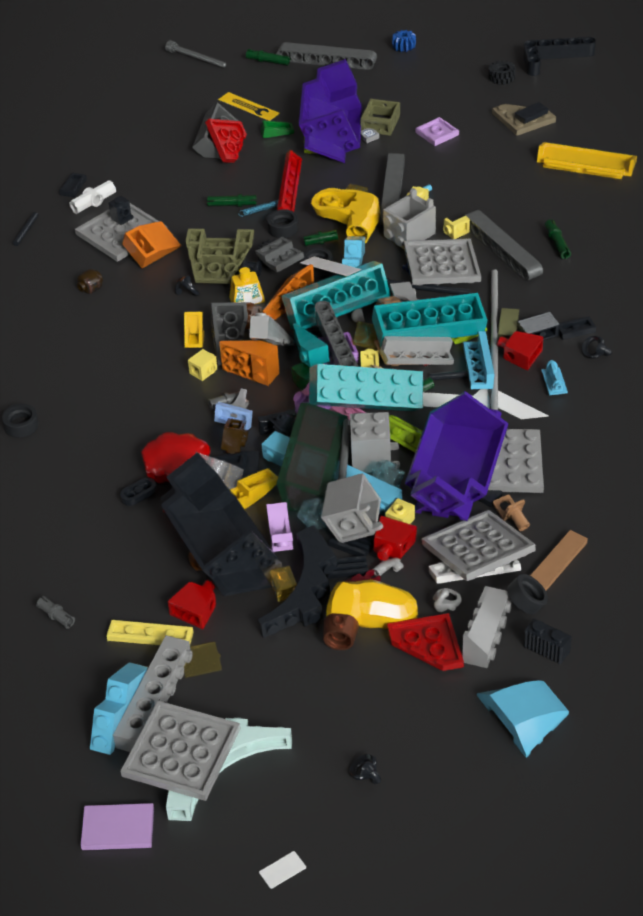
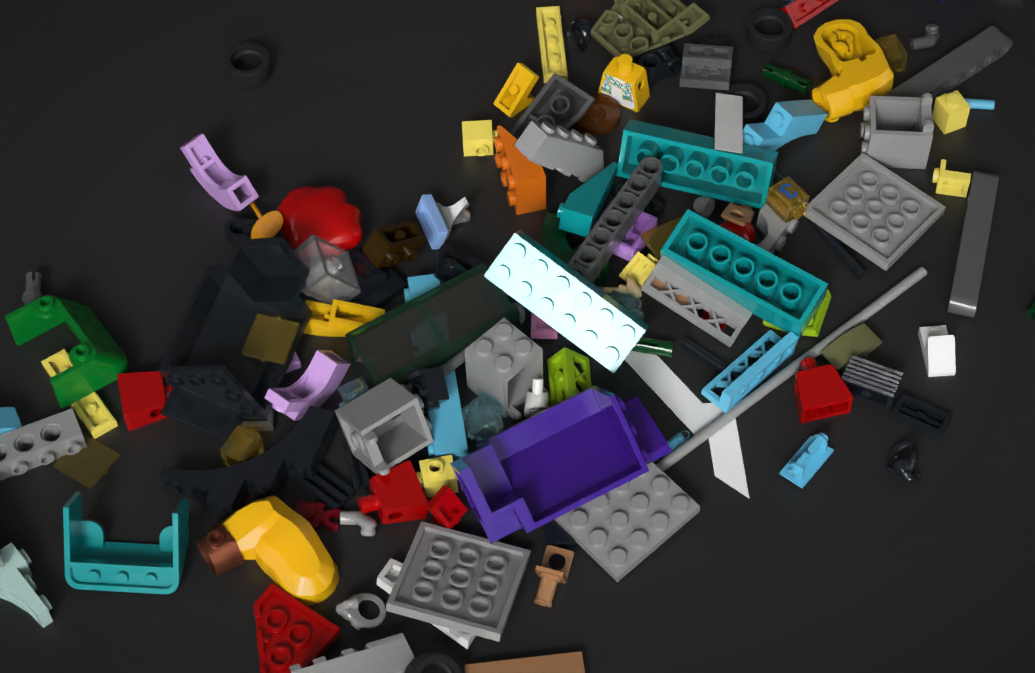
camera: 45 degrees right, 10 degrees up
(87, 481) = (223, 185): none -> lavender arch
(117, 601) = (94, 360): none -> green windscreen
(149, 479) = (267, 225): none -> light orange piece
(175, 300) = (551, 42): none -> light yellow tile
(226, 398) = (451, 197): dark grey pin -> none
(232, 520) = (270, 339): none -> clear yellow piece
(300, 279) = (679, 116): orange wedge -> none
(312, 672) = (119, 565): none -> teal windscreen
(351, 468) = (430, 387): none -> black brick
(362, 178) = (929, 38): none -> dark grey arm
(400, 450) = (536, 400): none -> white piece
(404, 278) = (787, 200): none -> clear yellow brick
(426, 522) = (446, 508): none -> red bracket
(546, 296) = (938, 350): none -> white slope

